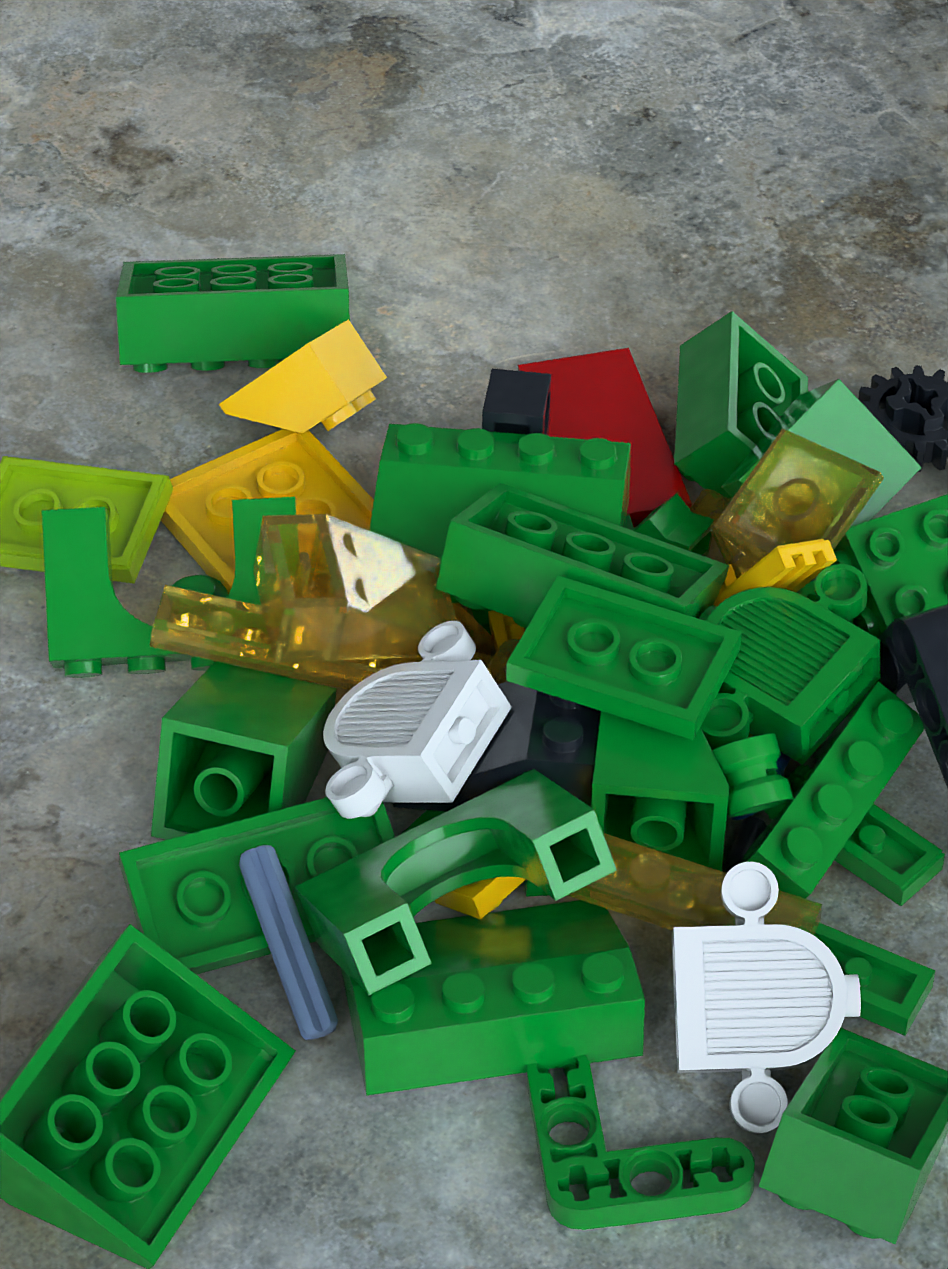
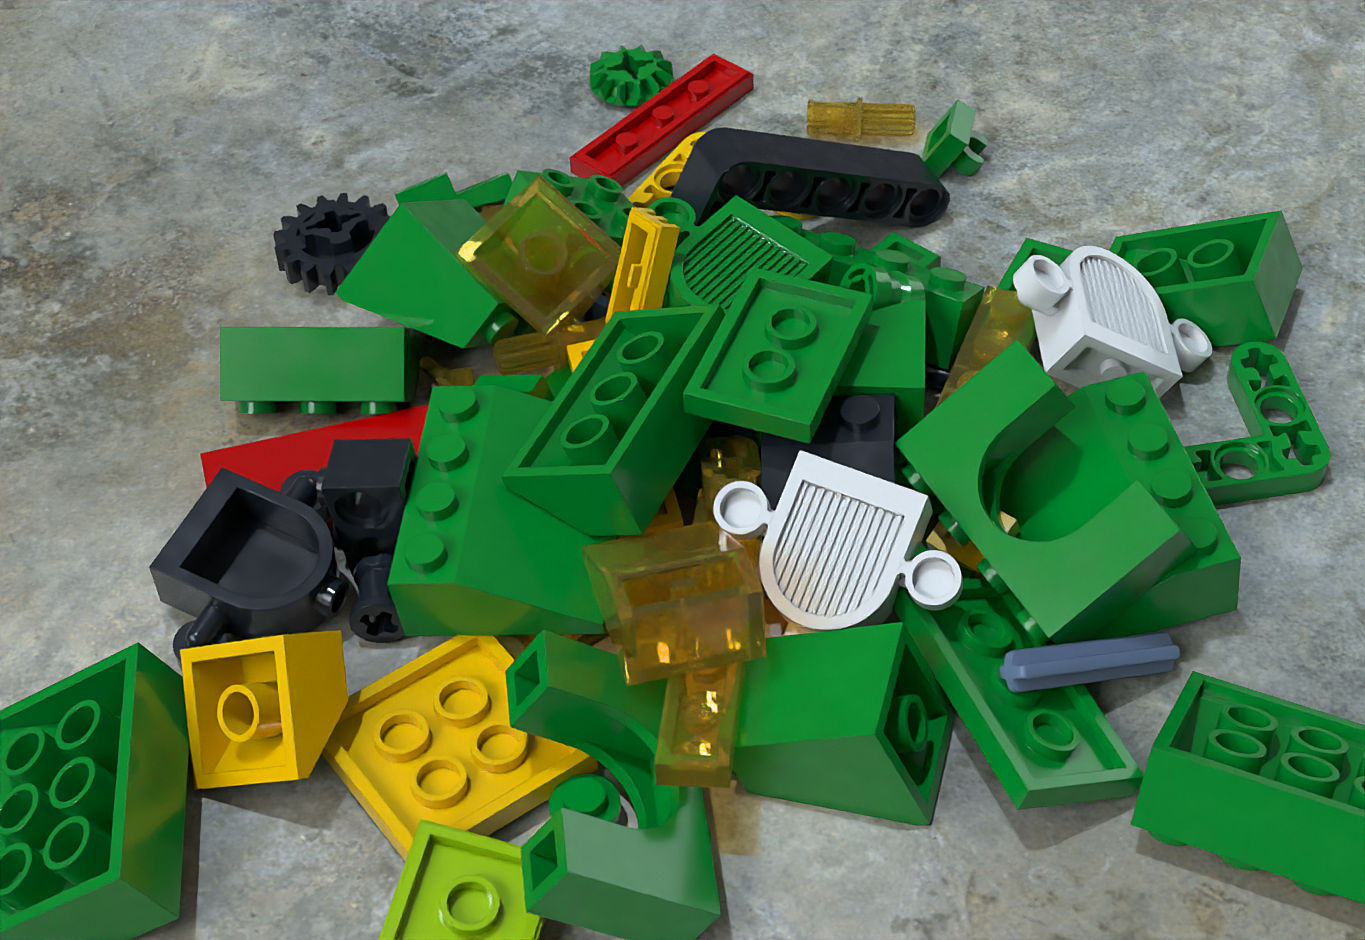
camera: 90 degrees left, 0 degrees up
(454, 362) = (251, 562): none -> black piece

